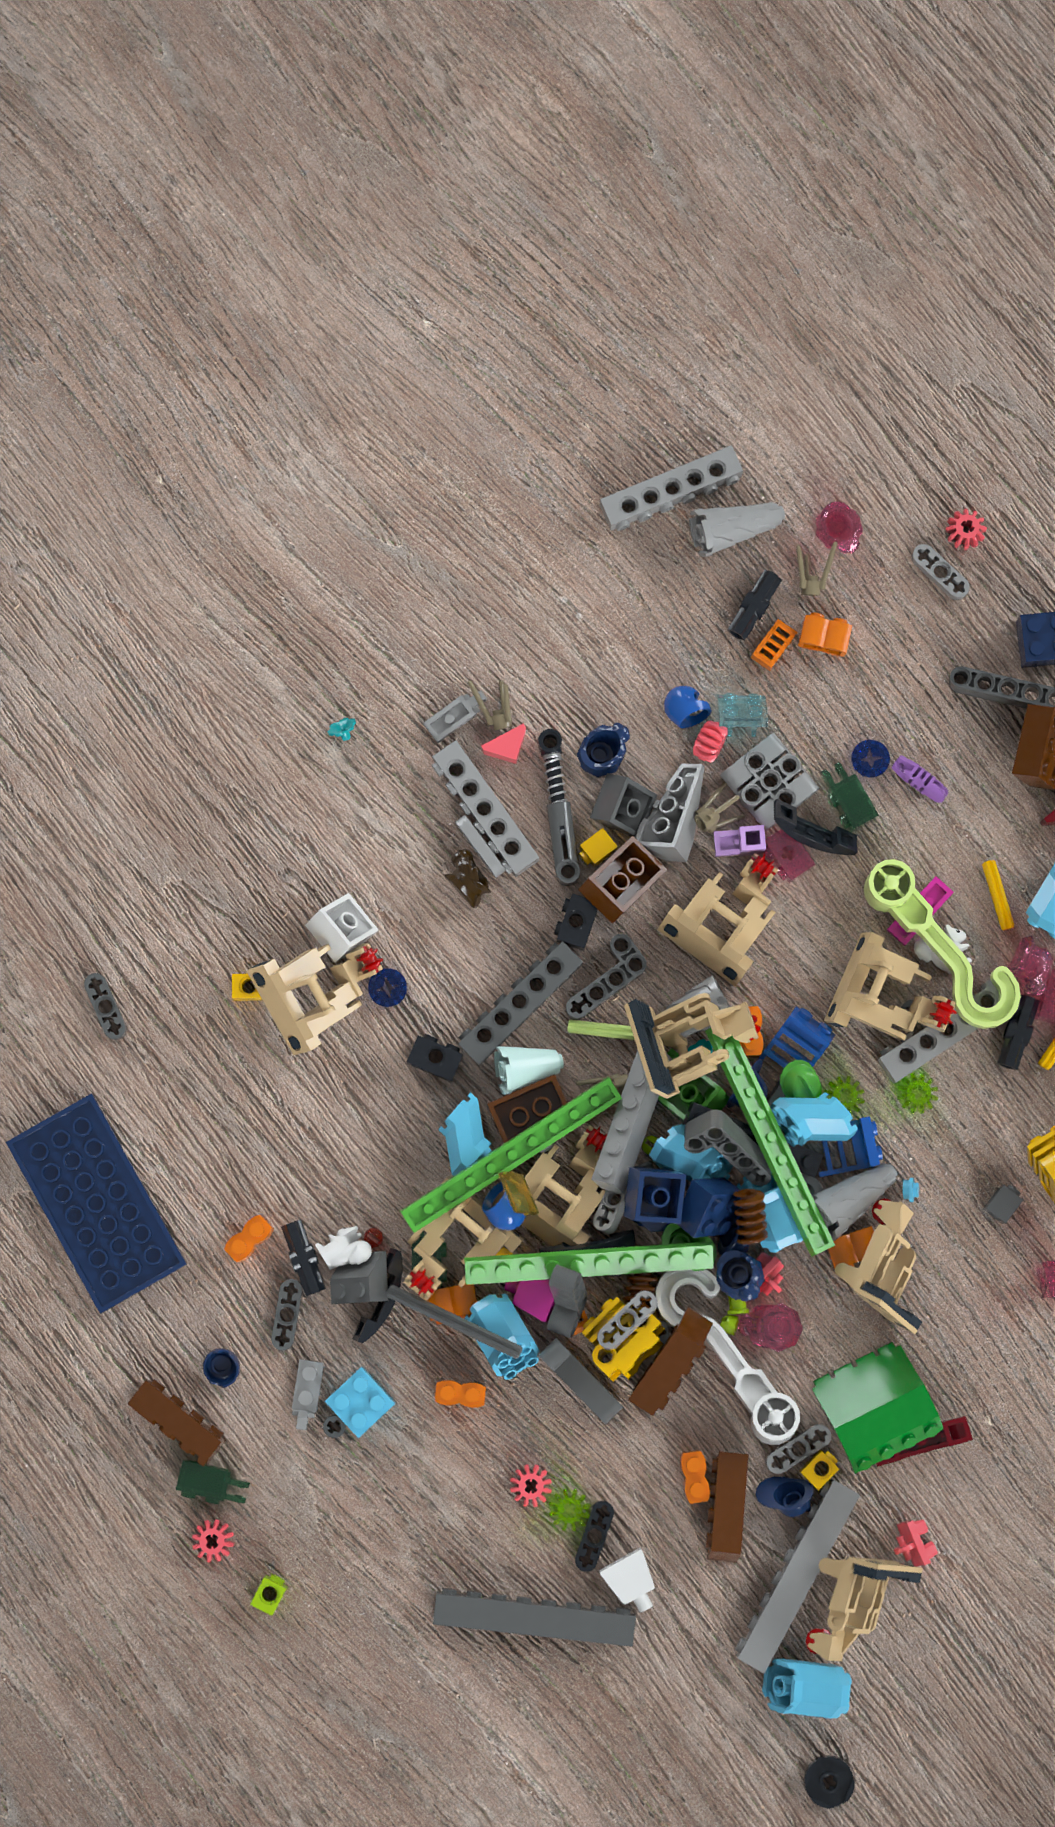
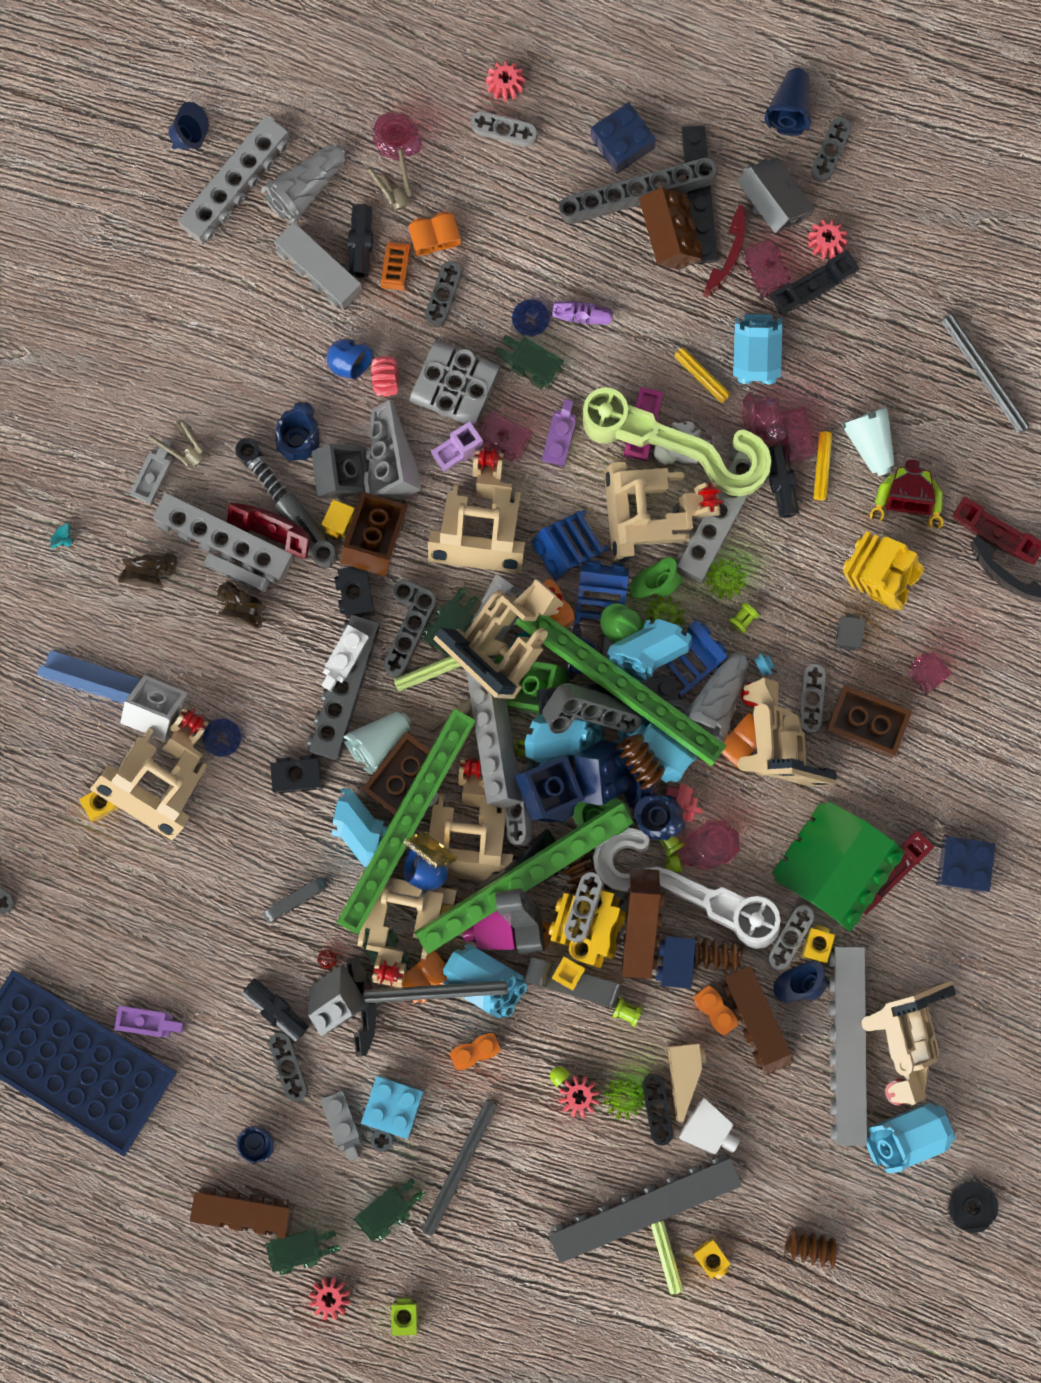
camera: 25 degrees left, 0 degrees up
(184, 1205) = (146, 1022): none -> medium lavender hinge
(244, 1243) = (220, 1013): orange brick -> none
(298, 868) = (88, 677): none -> medium blue panel
(304, 1491) = (386, 1210): none -> clear green hinge
(345, 1248) = (307, 982): white animal -> none
(374, 1169) = (295, 900): none -> dark grey beam
(390, 1488) = (459, 1168): none -> dark grey axle
(403, 801) = (147, 570): none -> dark brown piece
(506, 745) = (212, 474): coral slope -> none
(523, 1456) = (559, 1075): none -> lime hinge
(530, 1672) = (667, 1257): none -> yellowish green axle
(534, 821) = (270, 525): none -> dark red slope
(535, 976) = (344, 657): none -> white hinge
(567, 1685) = (704, 1251): none -> yellow brick
(581, 1371) = (568, 973): none -> yellow brick
(615, 1433) = (627, 1011): none -> lime bush
(637, 1516) = (685, 1069): none -> tan slope
(649, 992) = (450, 617): none -> clear green hinge
(656, 418) = (189, 127): none -> dark blue piece
(664, 1736) = (811, 1247): none -> reddish brown piece
(683, 1414) = (676, 963): none -> dark blue brick
(703, 607) = (318, 266): none -> light grey brick
(708, 818) = (419, 442): dark tan plant -> none
(723, 1427) = (718, 955): none -> reddish brown piece
(742, 712) = (399, 335): clear light blue plate -> none
(779, 983) = (558, 551): none -> blue plate
(821, 686) = (442, 276): none -> dark grey beam
(836, 841) = (539, 404): black slope -> none
(838, 880) = (560, 435): none -> medium lavender hinge
(856, 1059) = (657, 579): none -> bright green piece
(912, 1545) = (932, 965): coral hips -> none
(914, 1137) = (743, 618): none -> lime bush
(926, 1245) = (807, 680): none -> light grey beam
(975, 1293) = (868, 721): none -> reddish brown brick
(993, 1471) = (966, 864): none -> dark blue brick

